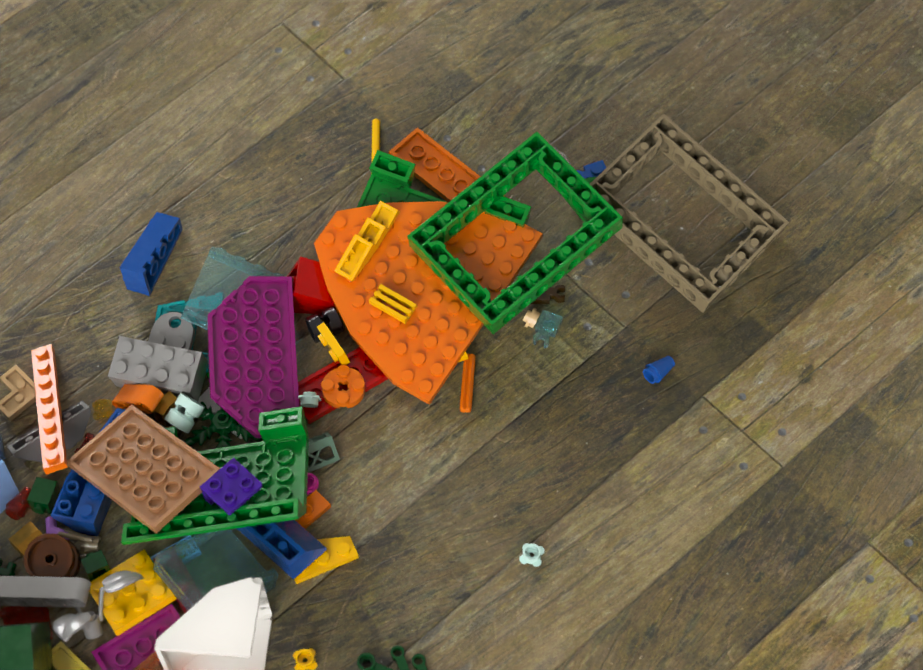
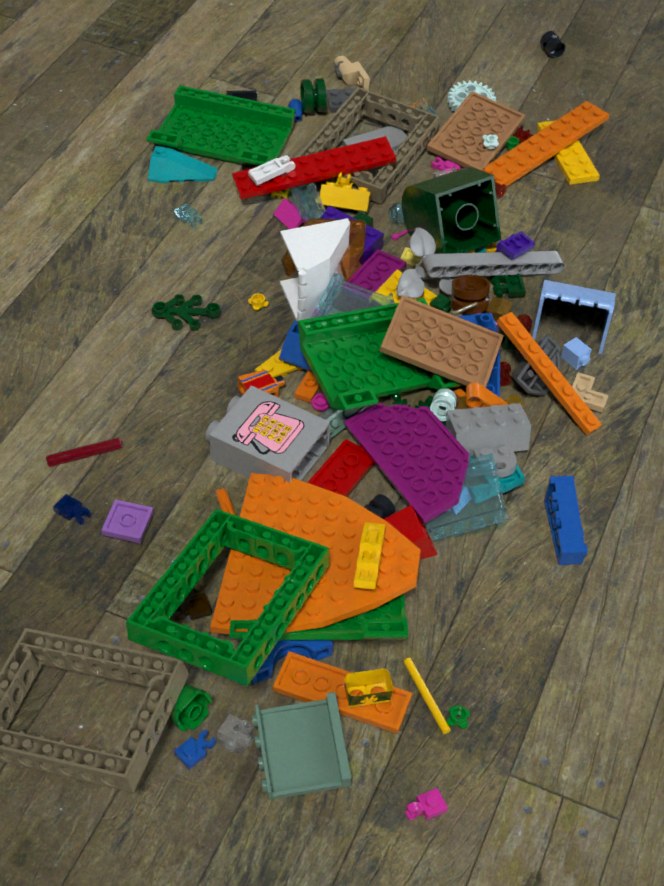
camera: 150 degrees right, 10 degrees down
(230, 487) = (365, 338): dark purple bracket -> none
(309, 399) = (351, 444): light aqua plate -> none
(329, 340) = (354, 485): yellow wing -> none
(341, 376) = (329, 456): orange plate -> none
(359, 122) = (459, 711): none -> green plate
(365, 520) = (262, 381): none -> torso
(378, 294) = (319, 519): yellow tile -> none
(392, 436) = (267, 437): none -> light grey brick
(423, 73) = (427, 804): none -> dark pink plate
(424, 147) = (372, 679): none -> yellow piece
(496, 133) = (301, 748): none -> sand green panel
(534, 549) = (120, 407): light aqua plate -> none
(573, 404) = (127, 521): none -> medium lavender plate
(590, 508) = (83, 452): none -> dark red axle
(626, 439) = (70, 507): none -> clear blue plate
(658, 369) = (61, 571): blue cone -> none

